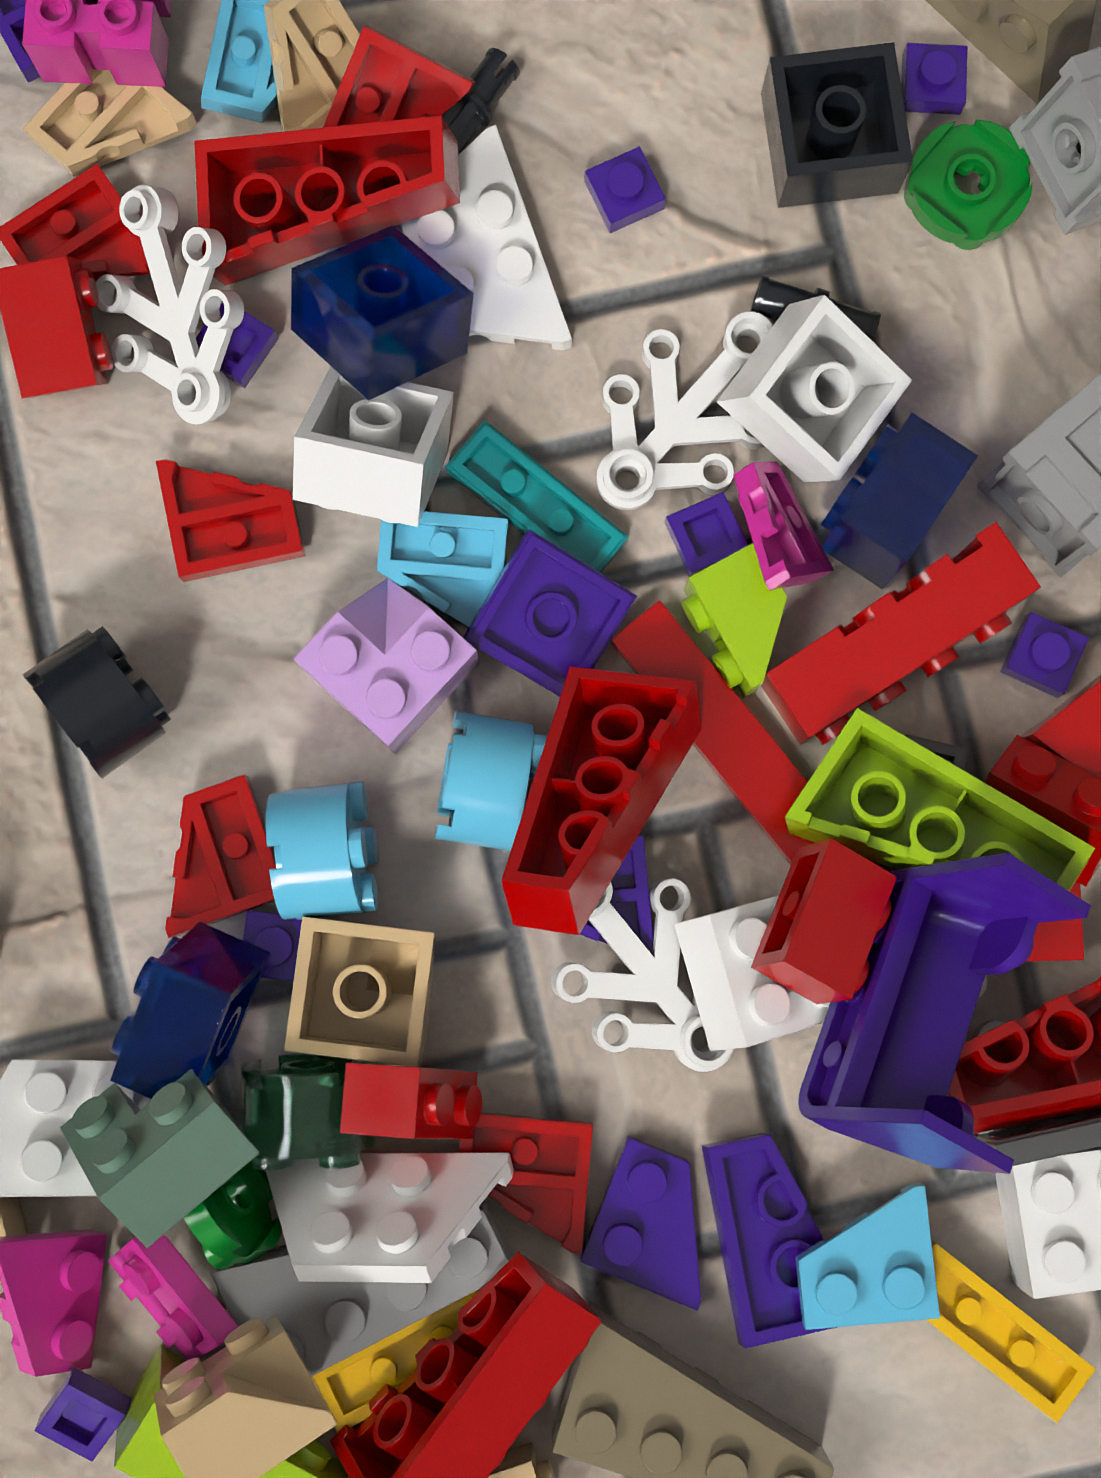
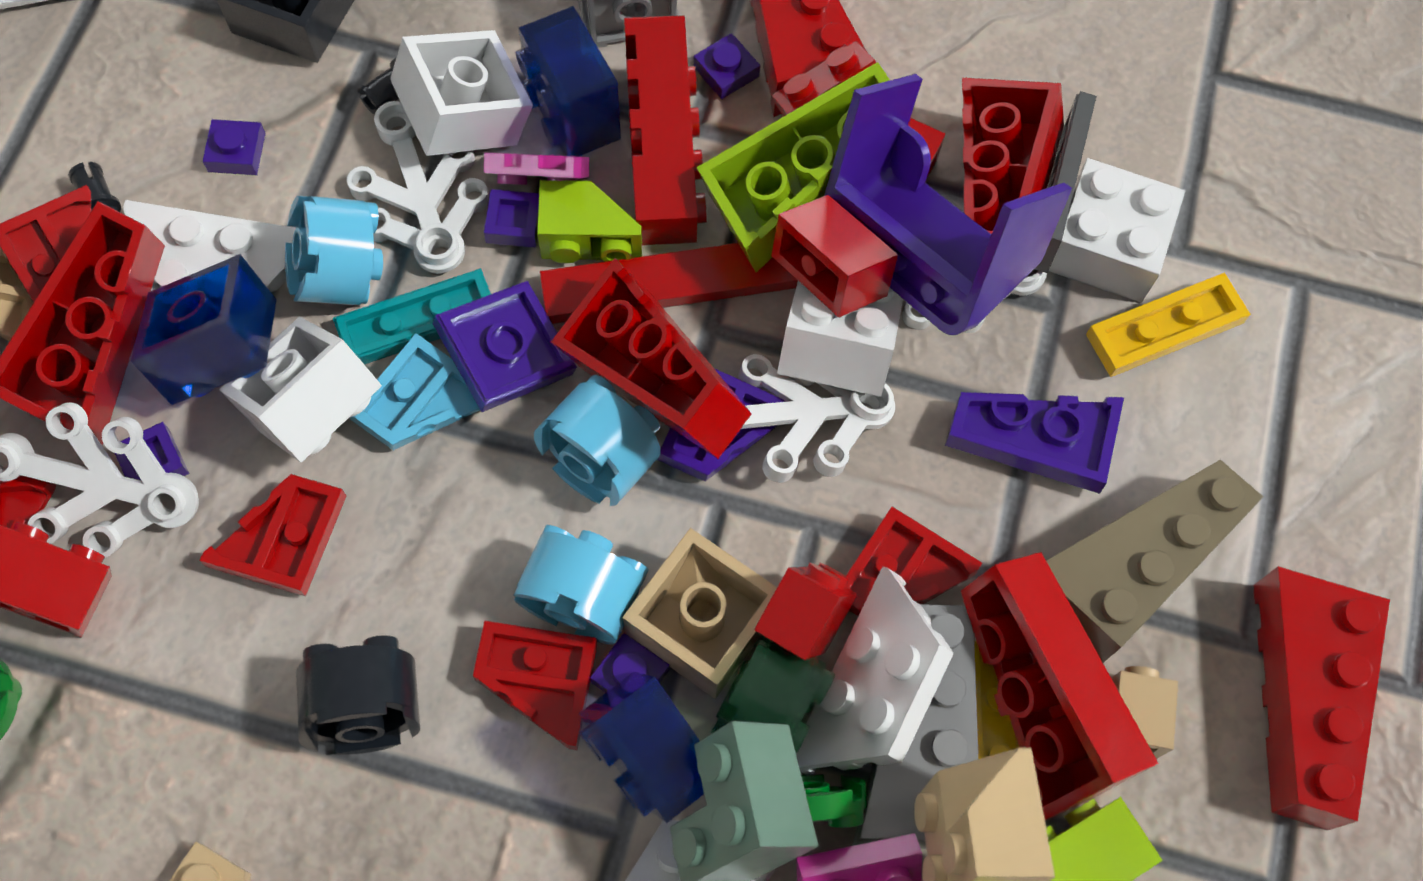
camera: 65 degrees left, 15 degrees down
(388, 661) = (466, 472): lavender slope -> none
(545, 378) = (332, 250): none -> medium azure brick
(648, 1225) = (983, 511): dark purple wing -> none
(872, 1268) = (1089, 370): medium azure wing -> none

